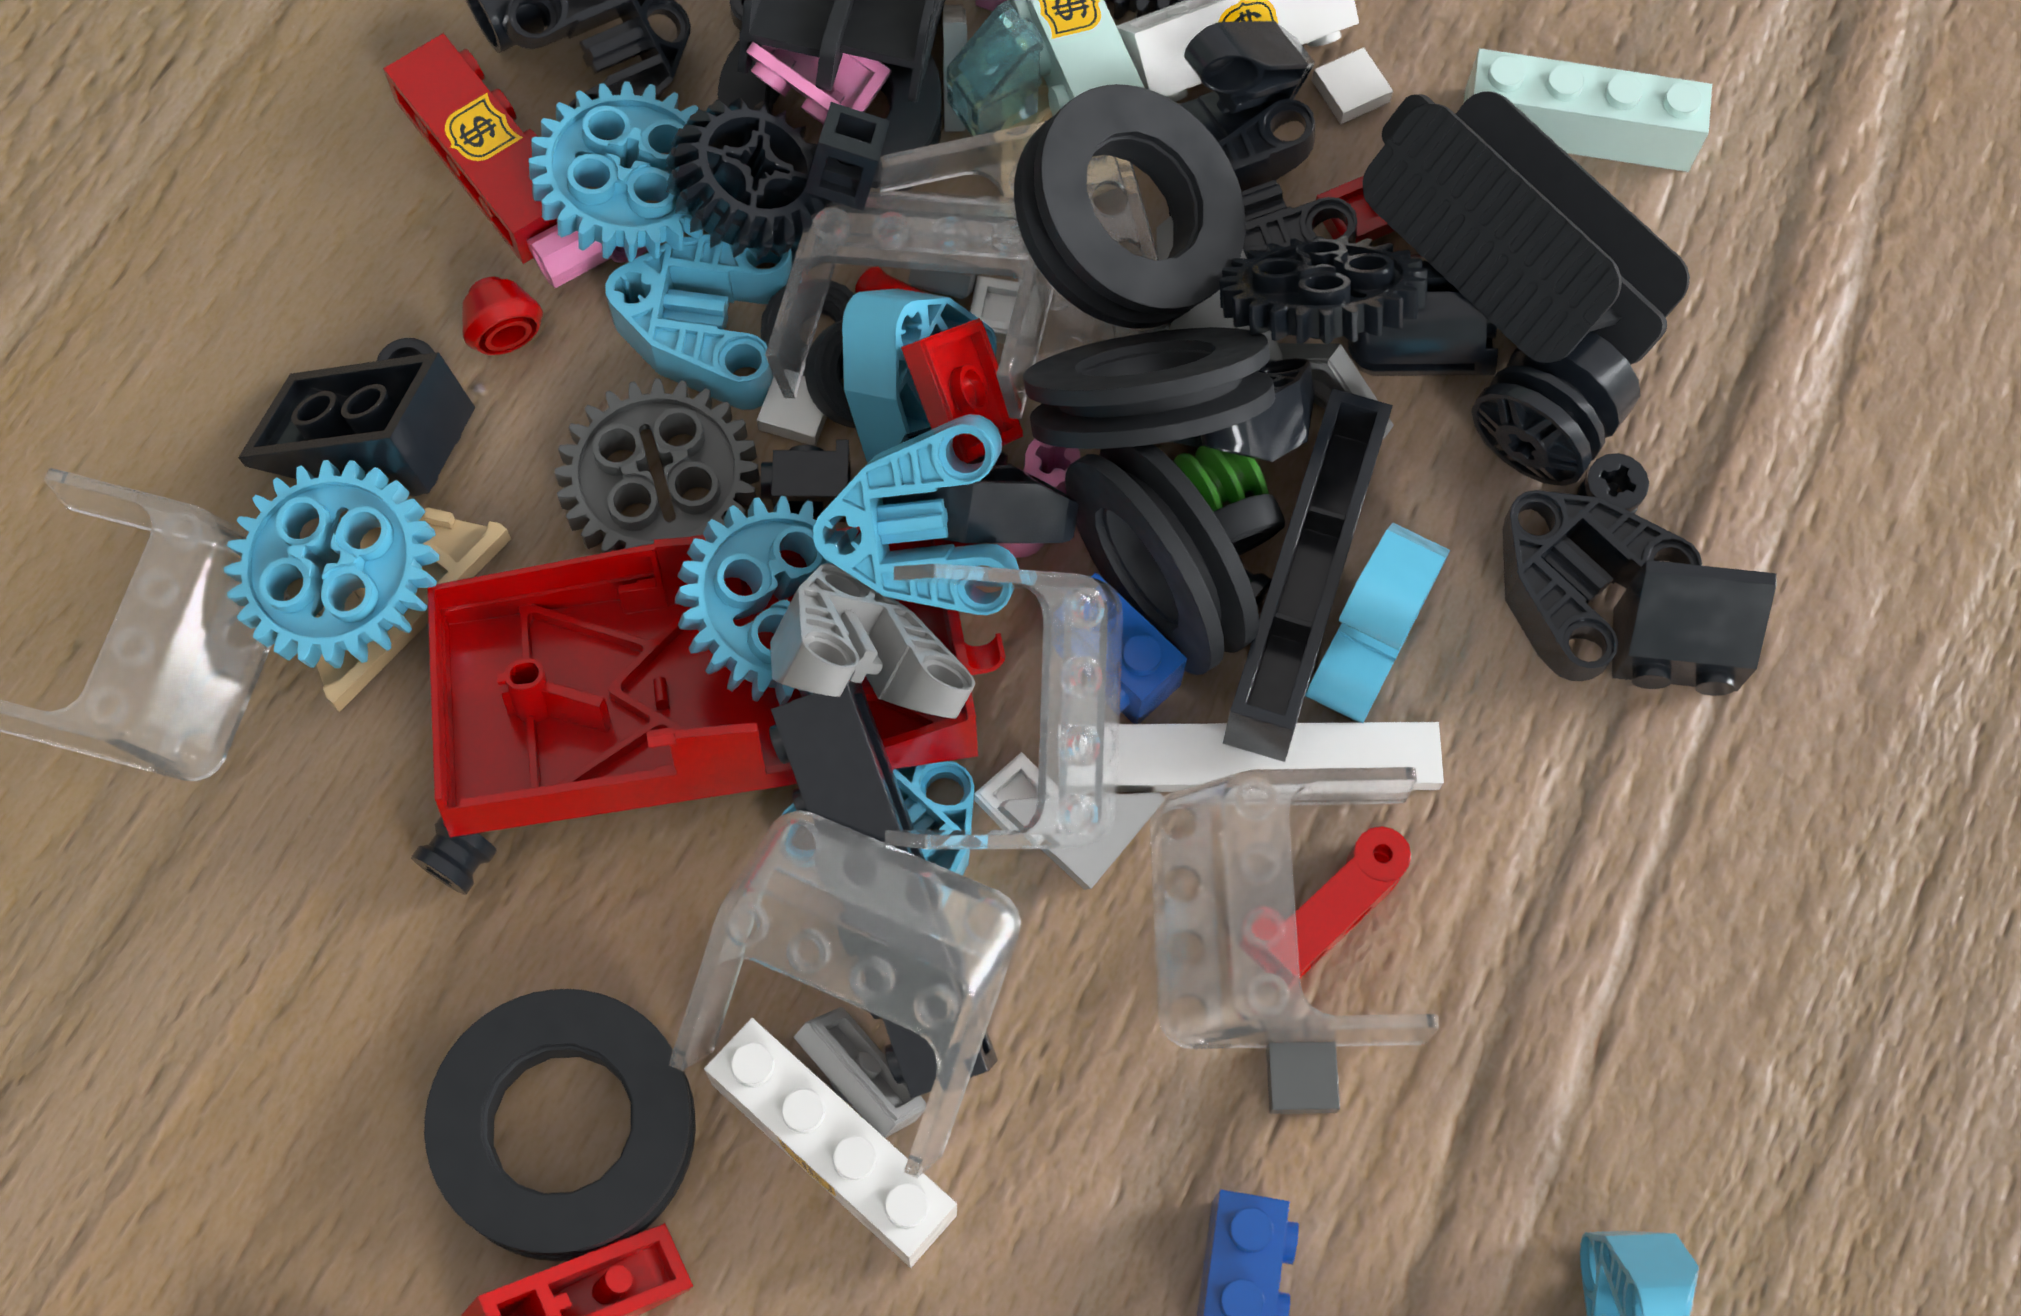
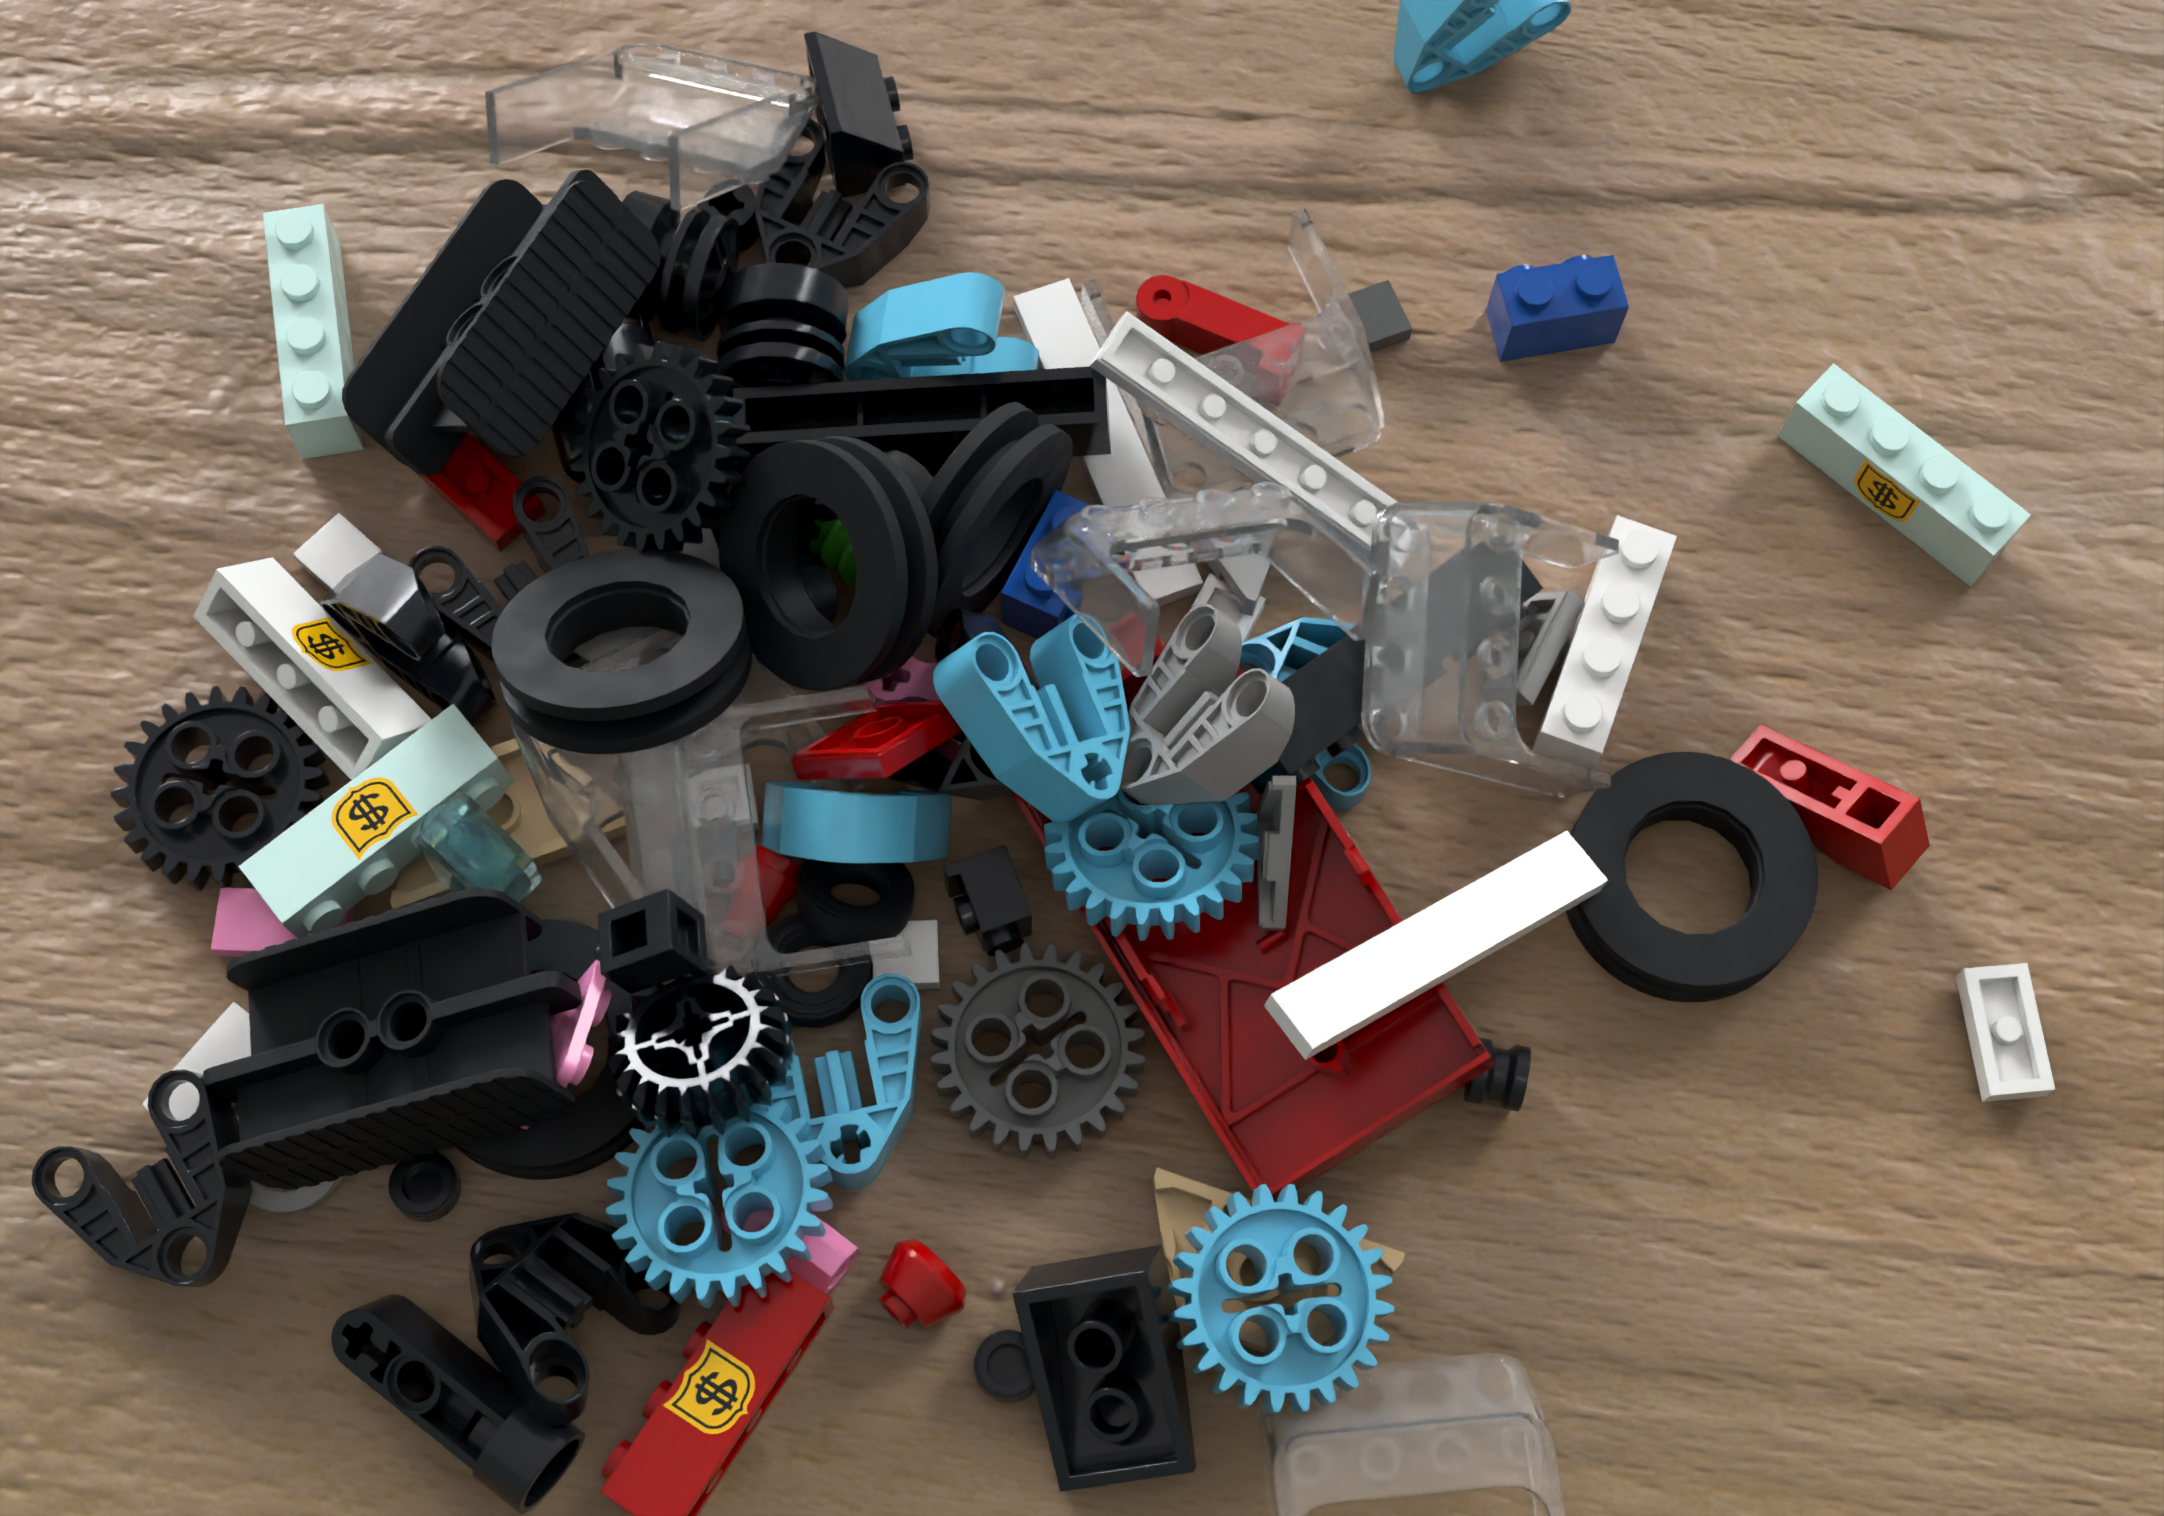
camera: 110 degrees left, 0 degrees up
(563, 802) = (1434, 945): none -> white tile
(723, 699) = (1275, 846): none -> light grey tile
(1169, 871) = (1238, 429): none -> white tile
(1439, 474) = (781, 326): none -> black wheel
(1748, 463) = (703, 112): none -> clear windscreen

